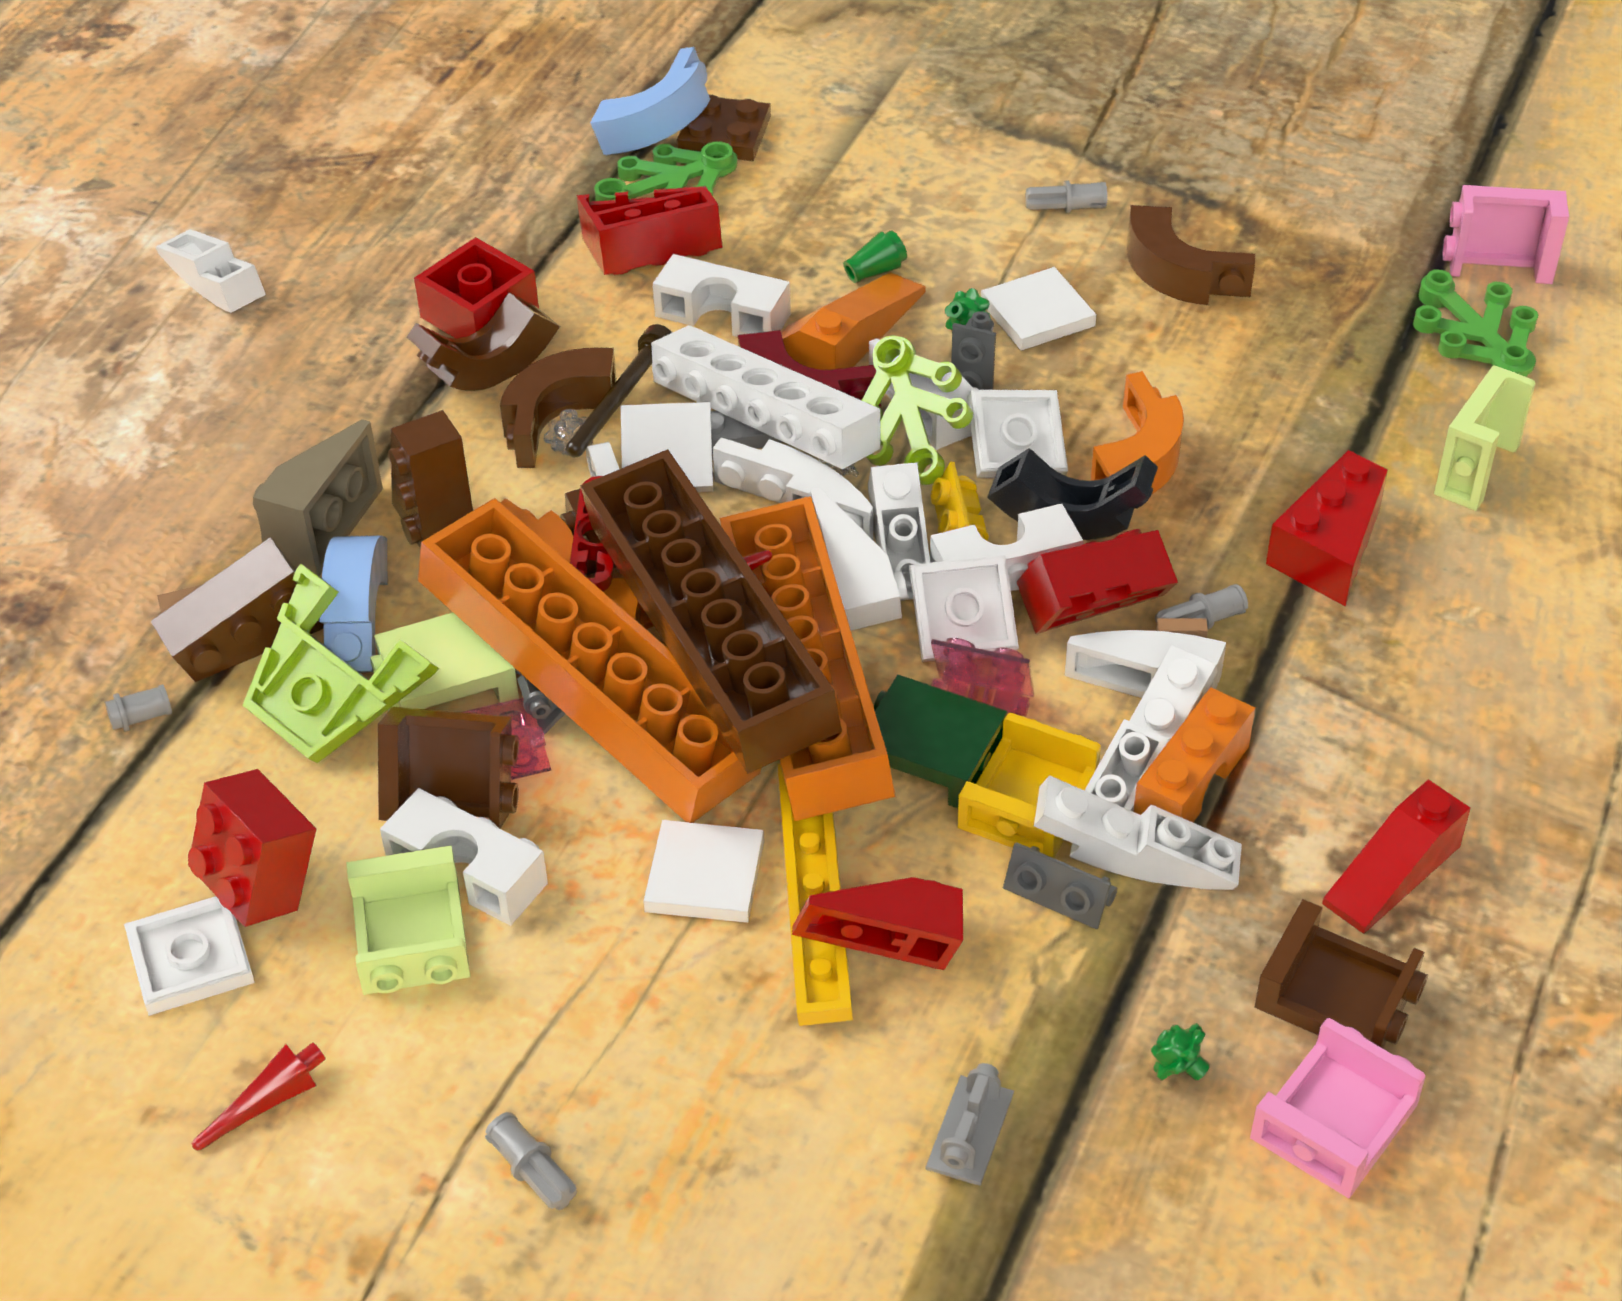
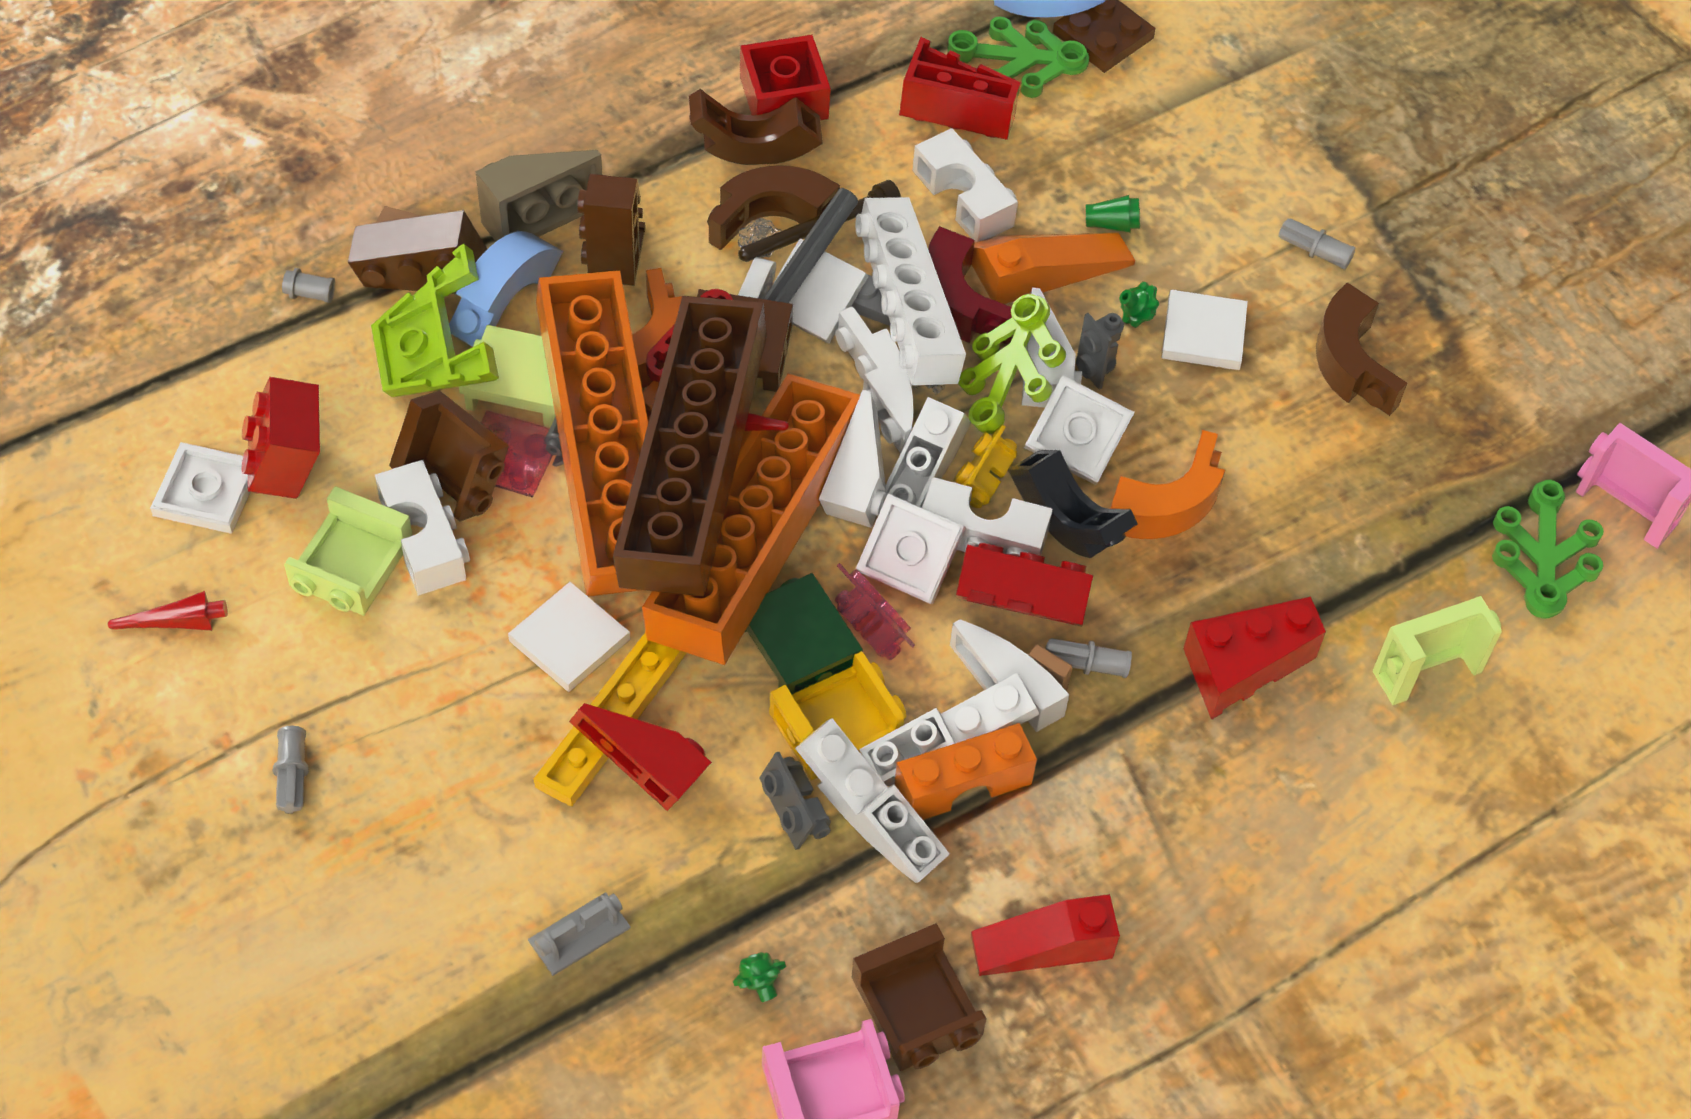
camera: 30 degrees right, 10 degrees up
(643, 396) = (813, 246): none -> dark grey axle

